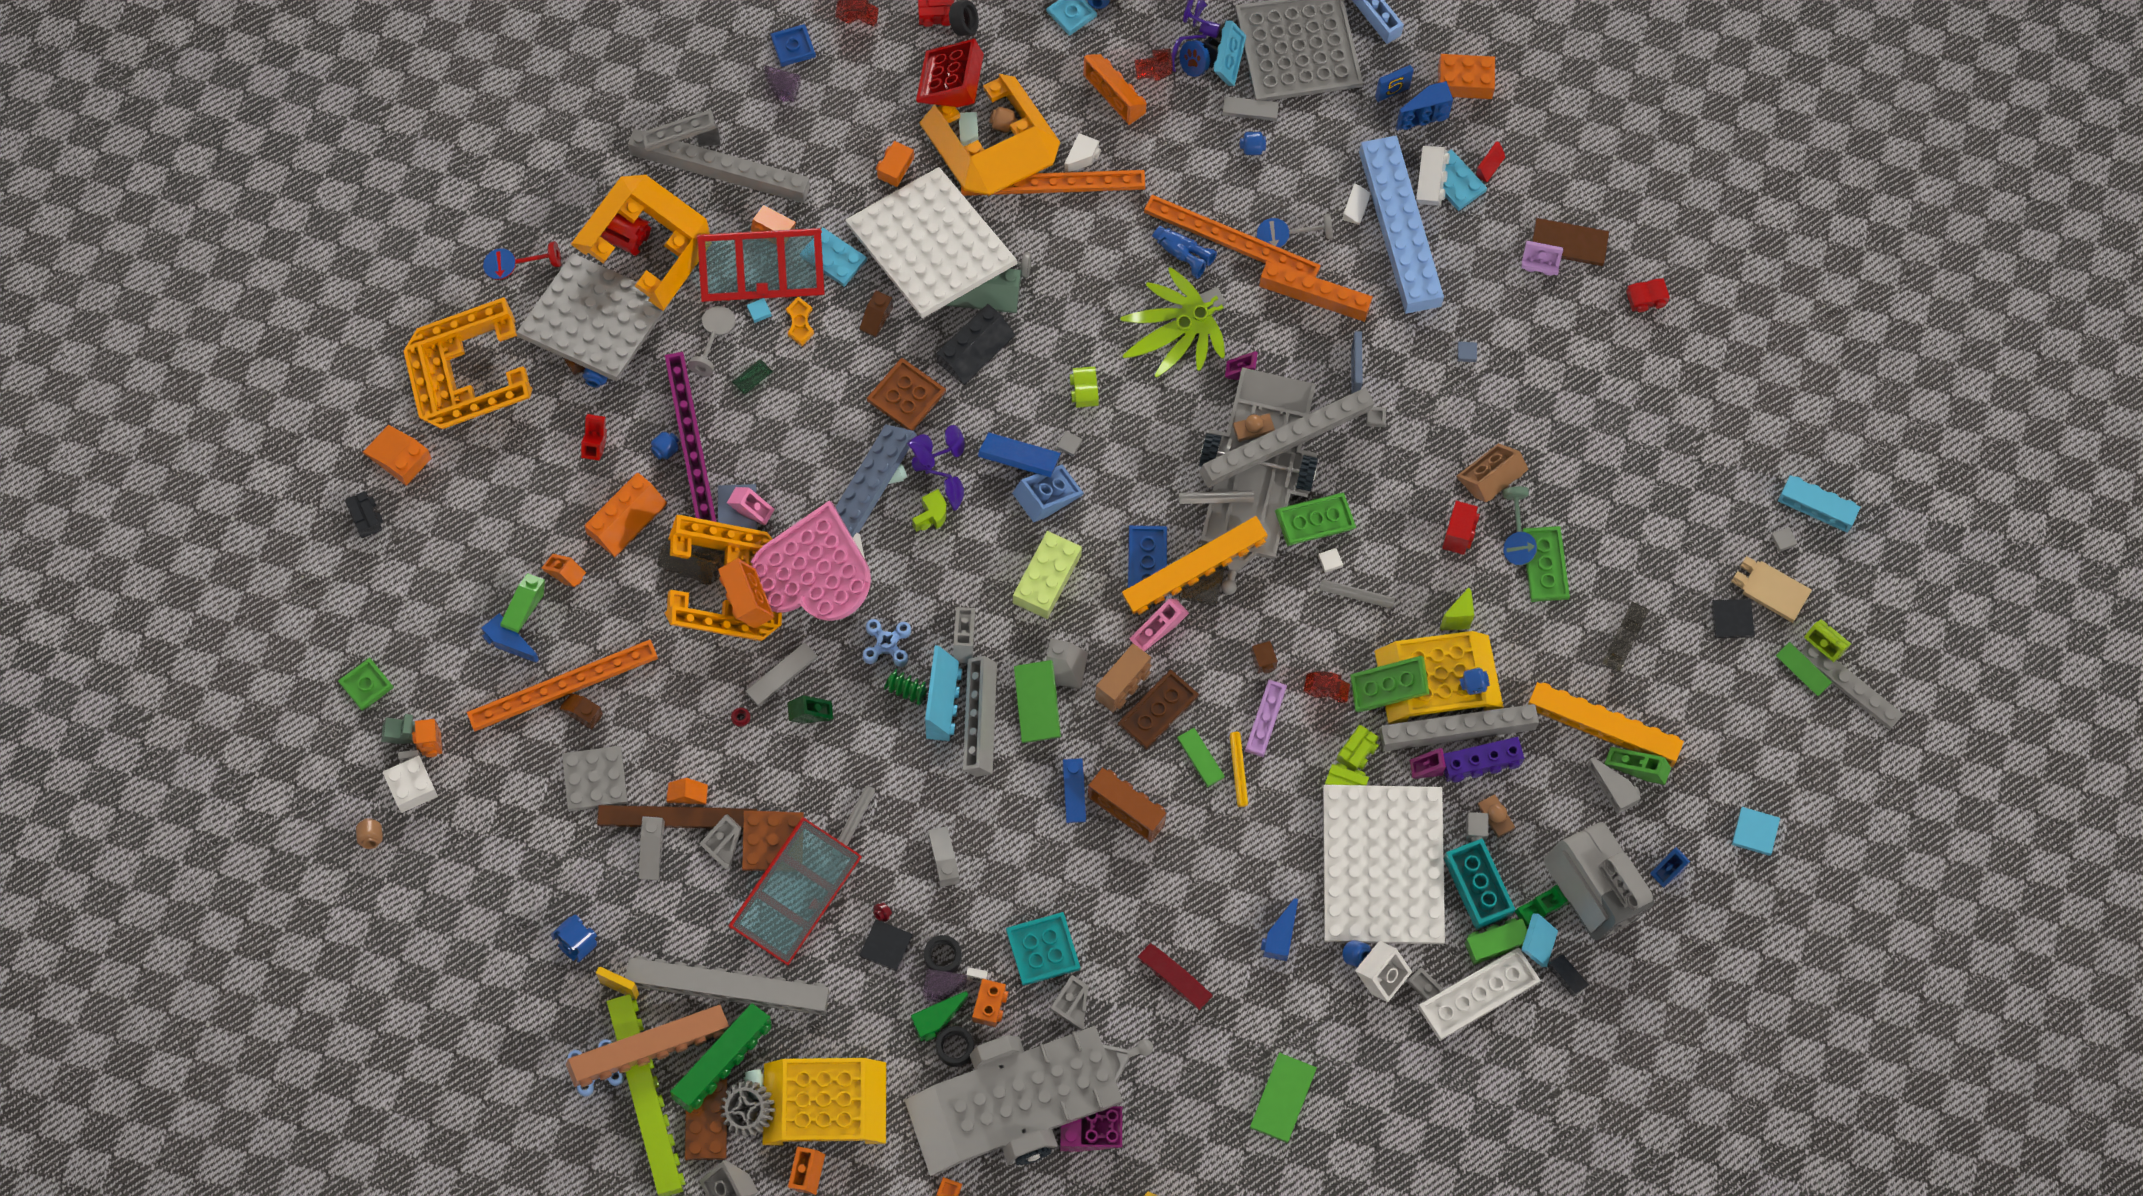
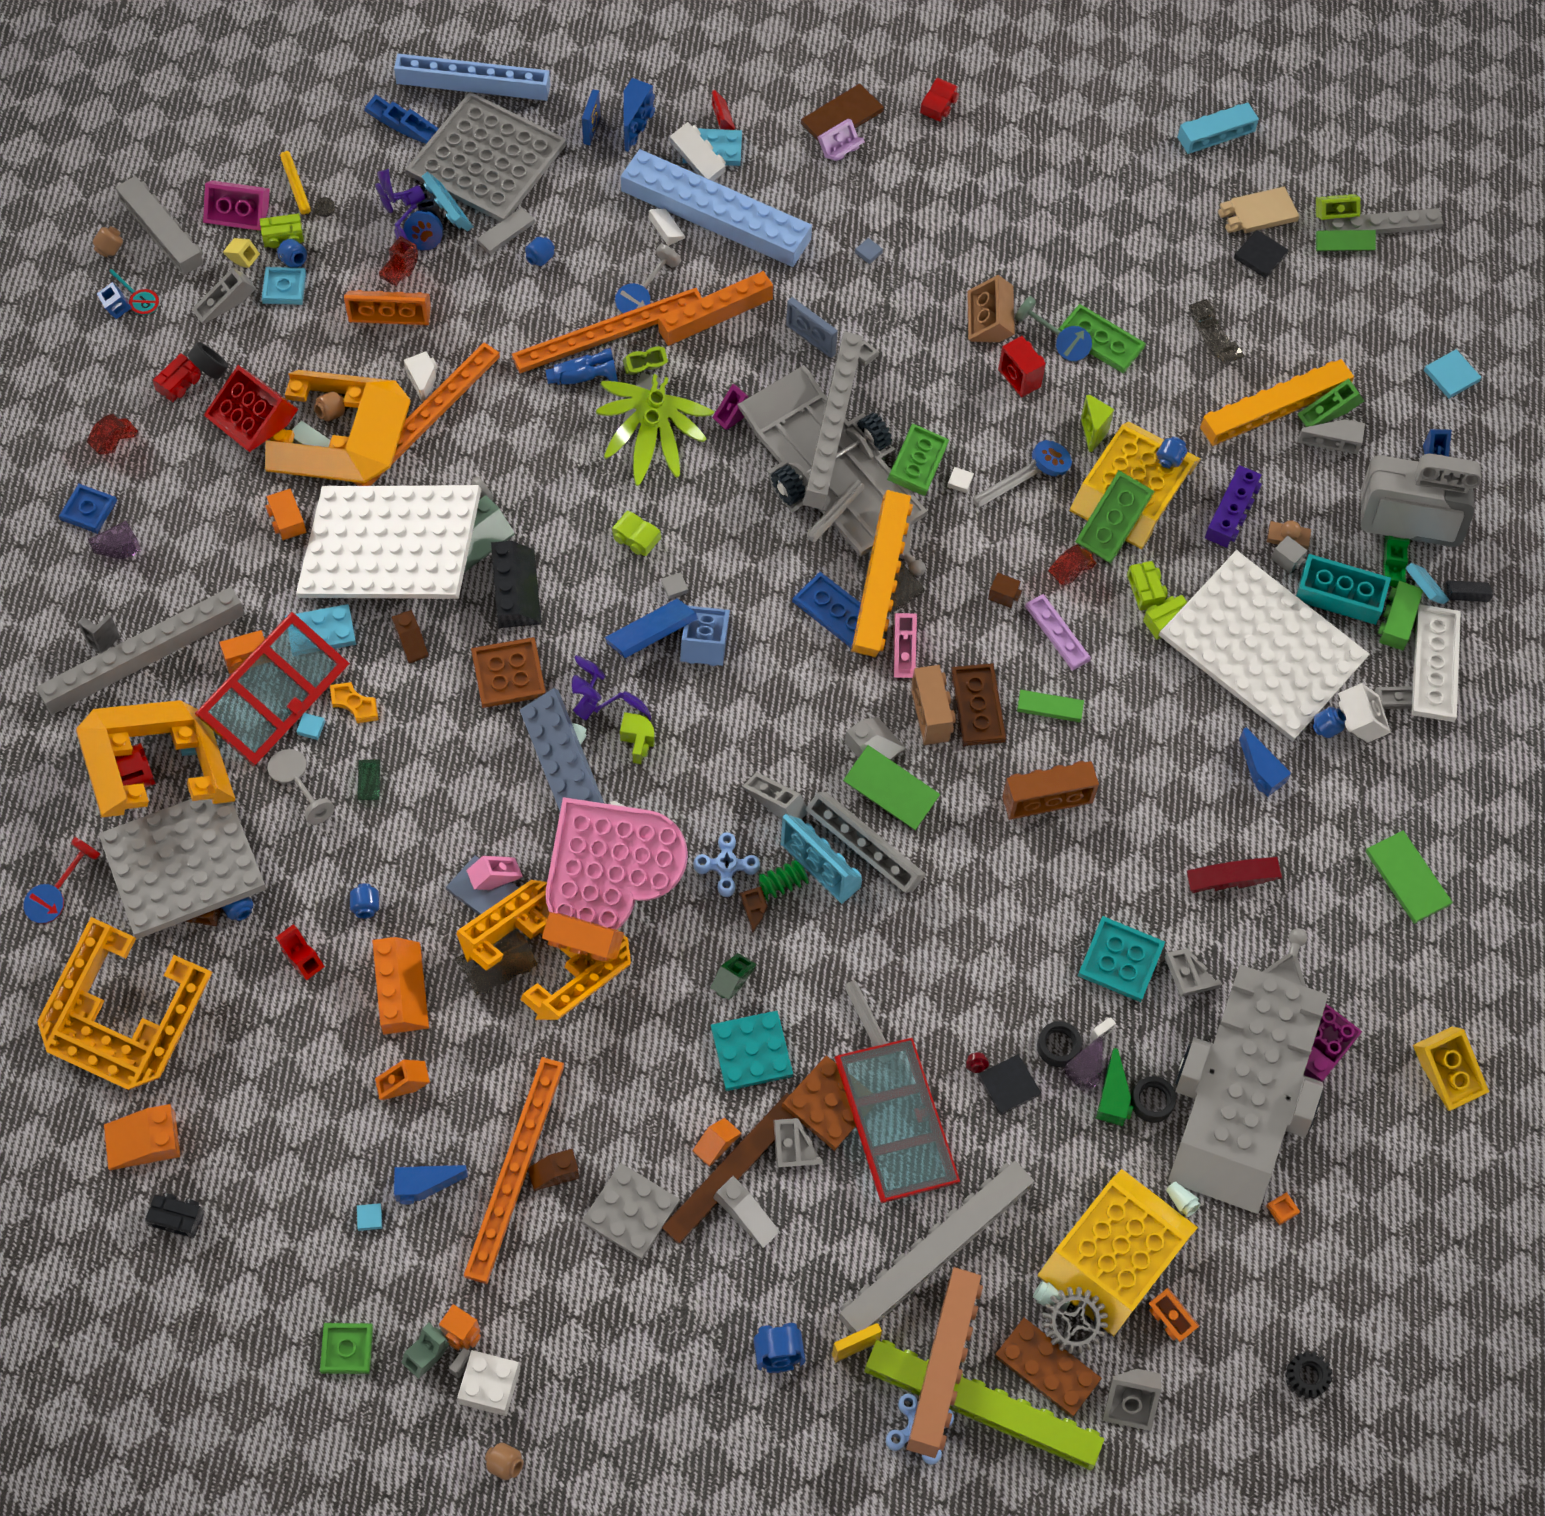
camera: 50 degrees left, 5 degrees down
(459, 627) = (369, 1217): none -> medium azure tile
(523, 602) = (405, 1138): bright green slope -> none
(678, 130) = (80, 648): light grey tile -> none
(690, 436) = (380, 872): magenta brick -> none
(720, 1058) = (1006, 1306): green brick -> none
(737, 712) = (685, 1032): dark red plate -> none
(768, 764) = (751, 1050): none -> teal plate
(781, 674) = (675, 974): light grey tile -> none
(873, 685) = (754, 906): none -> reddish brown tile
(897, 1119) = (1183, 1199): none -> light aqua cone
(944, 856) = (968, 972): light grey slope -> none
(989, 1003) = (1137, 1039): orange brick -> none
(1047, 575) = (781, 692): yellowish green brick -> none
(1074, 790) = (996, 822): blue slope -> none
(1222, 278) = (650, 360): none -> lime brick
(1238, 768) = (1086, 686): yellow axle -> none
(1253, 427) = (798, 437): medium nougat tile -> none
(1404, 606) = (1051, 458): none -> blue tile
(1428, 764) = (1205, 545): magenta slope -> none
(1458, 727) = (1192, 500): light grey brick -> none
(1468, 75) = (635, 61): orange brick -> none
(1784, 539) = (1225, 172): light grey tile -> none

